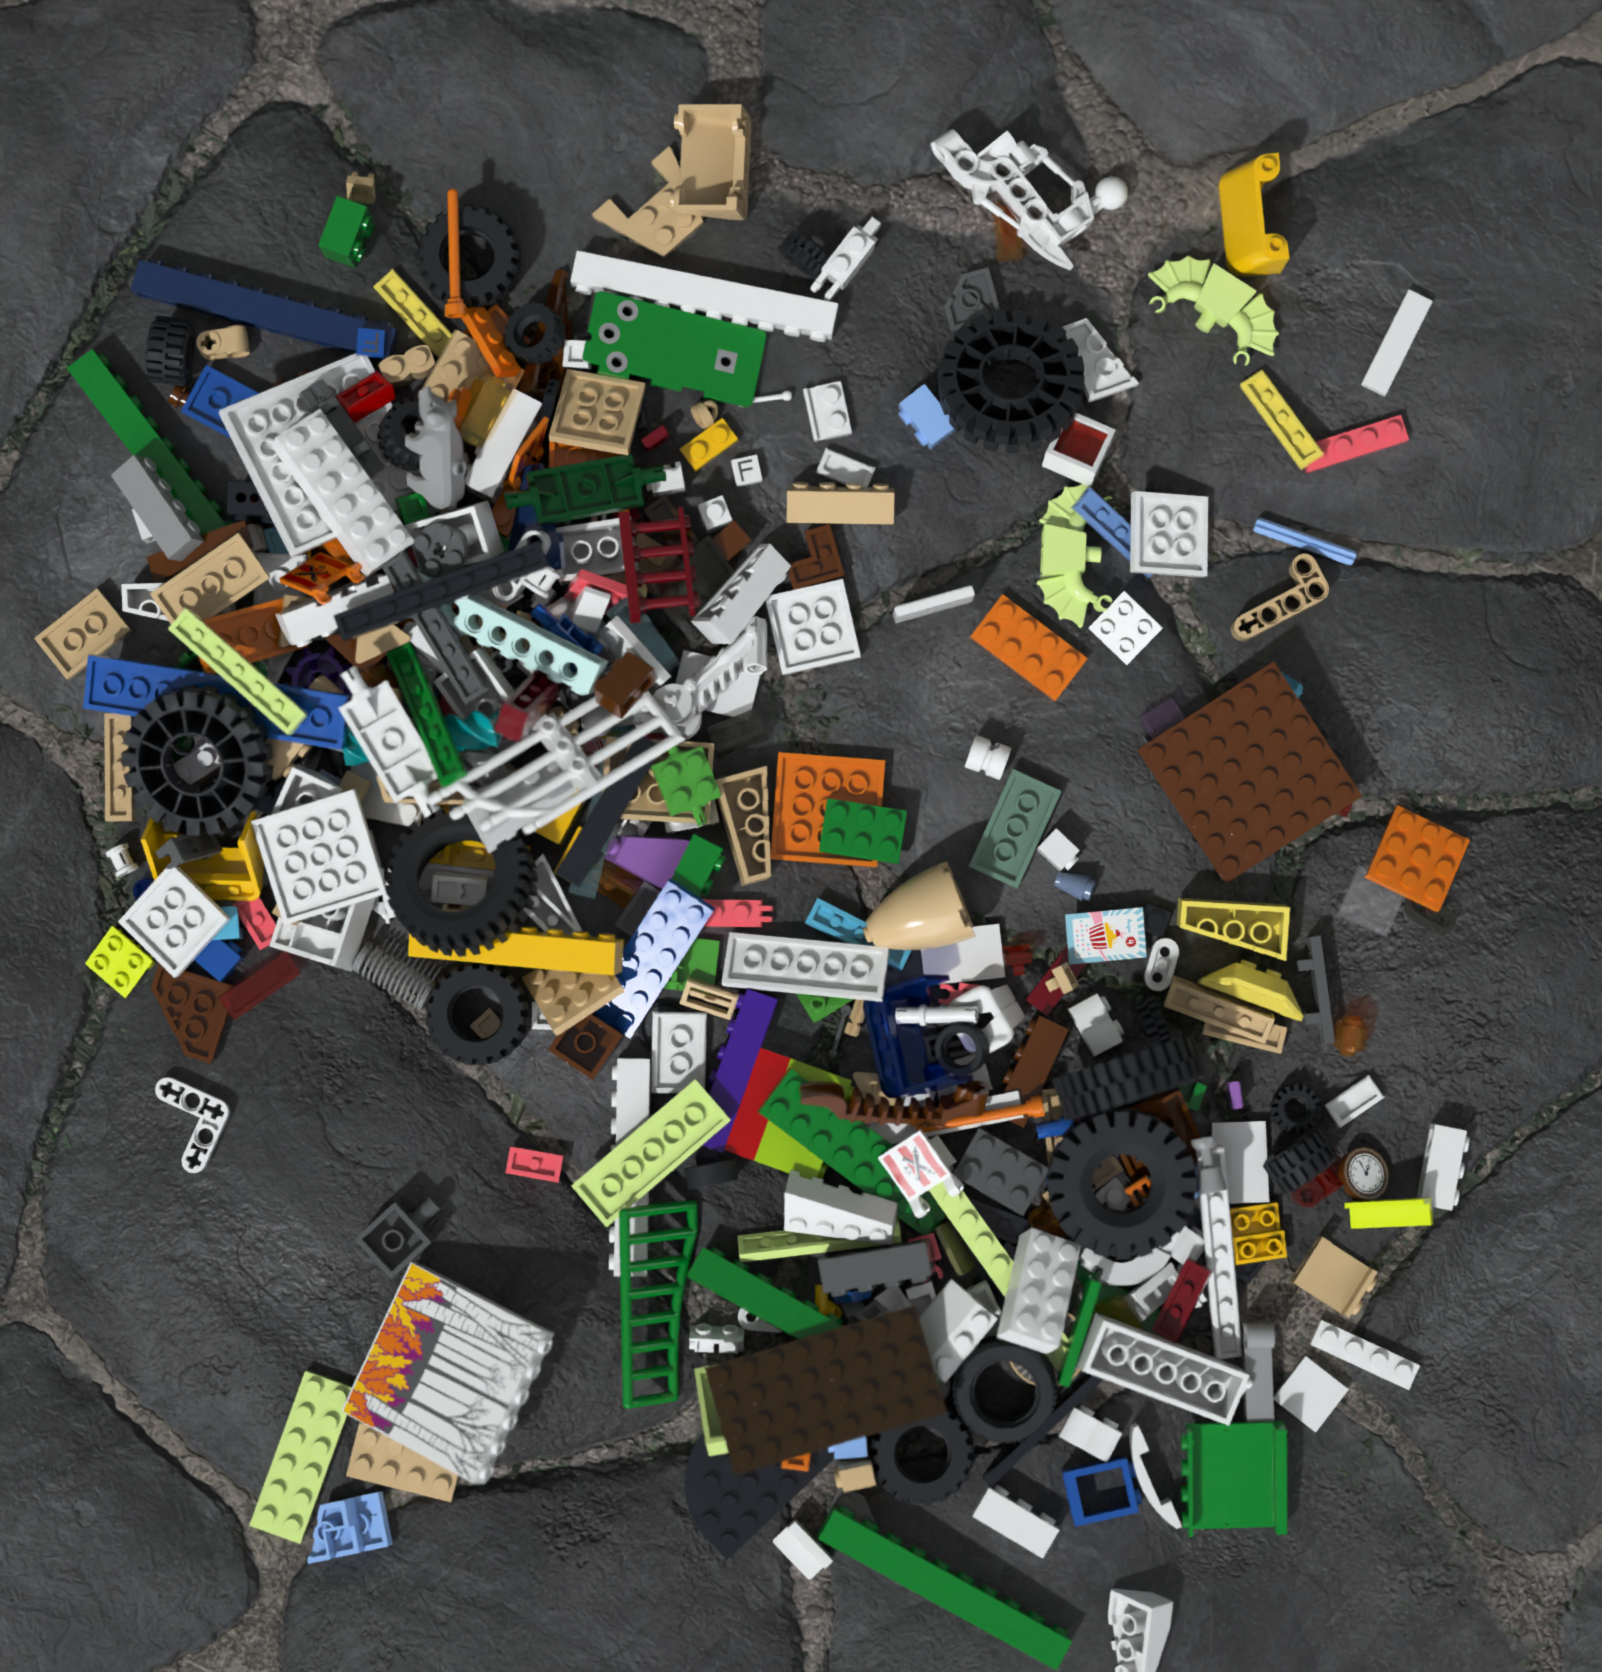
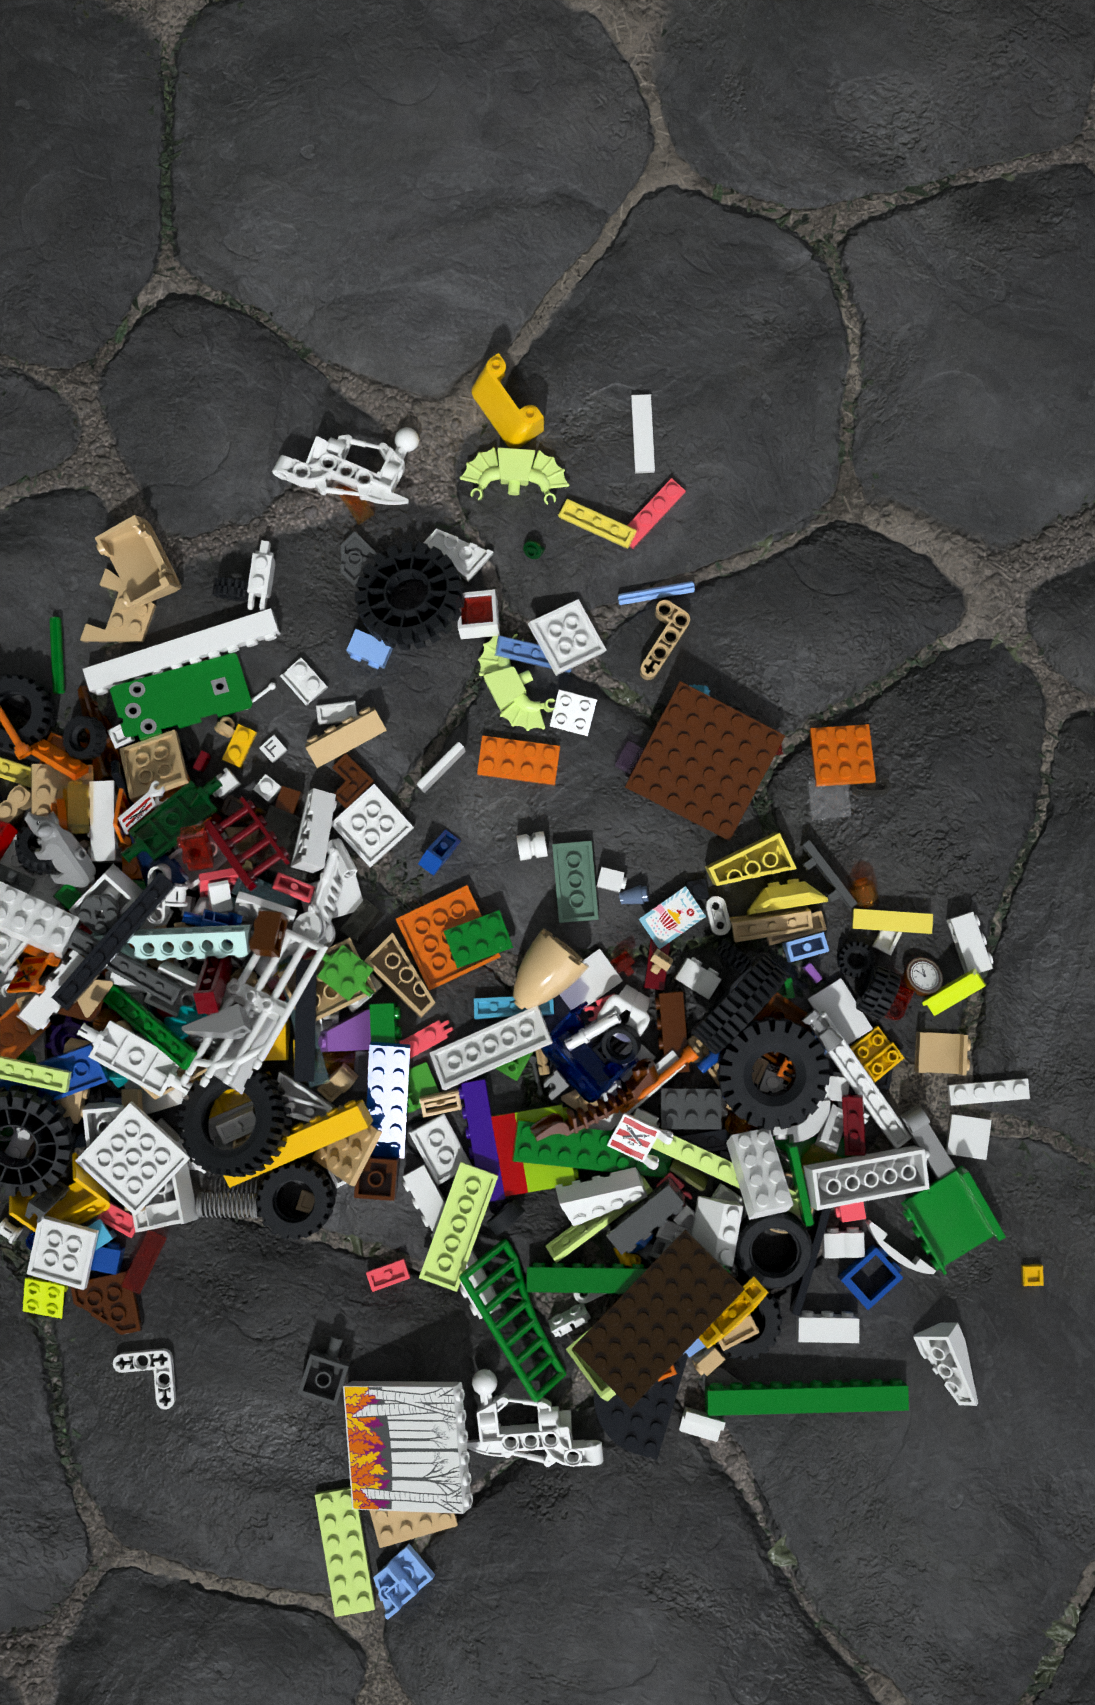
camera: 30 degrees left, 0 degrees up
(517, 760) = (227, 1024): none -> light grey slope
(550, 1427) = (551, 1420): none -> white piece
(554, 217) = (57, 655): none -> green axle
(558, 454) = (142, 807): none -> white flag
(590, 549) = (196, 847): none -> clear red brick
(606, 906) = (339, 1082): none -> tan plate
(680, 647) = (293, 887): none -> coral slope
(862, 1051) = (556, 1080): none -> light grey hinge
(873, 703) = (439, 852): none -> blue slope
(907, 1459) = (743, 1331): none -> tan tile
(918, 1435) = (734, 1313): none -> yellow slope
(1120, 1399) = (850, 1212): none -> coral brick
(1187, 407) = (533, 549): none -> dark green plate
(1244, 1059) = (805, 947): none -> light blue brick
(1293, 1599) = (1032, 1275): none -> yellow tile
(1364, 1088) = (892, 921): none -> light yellow tile

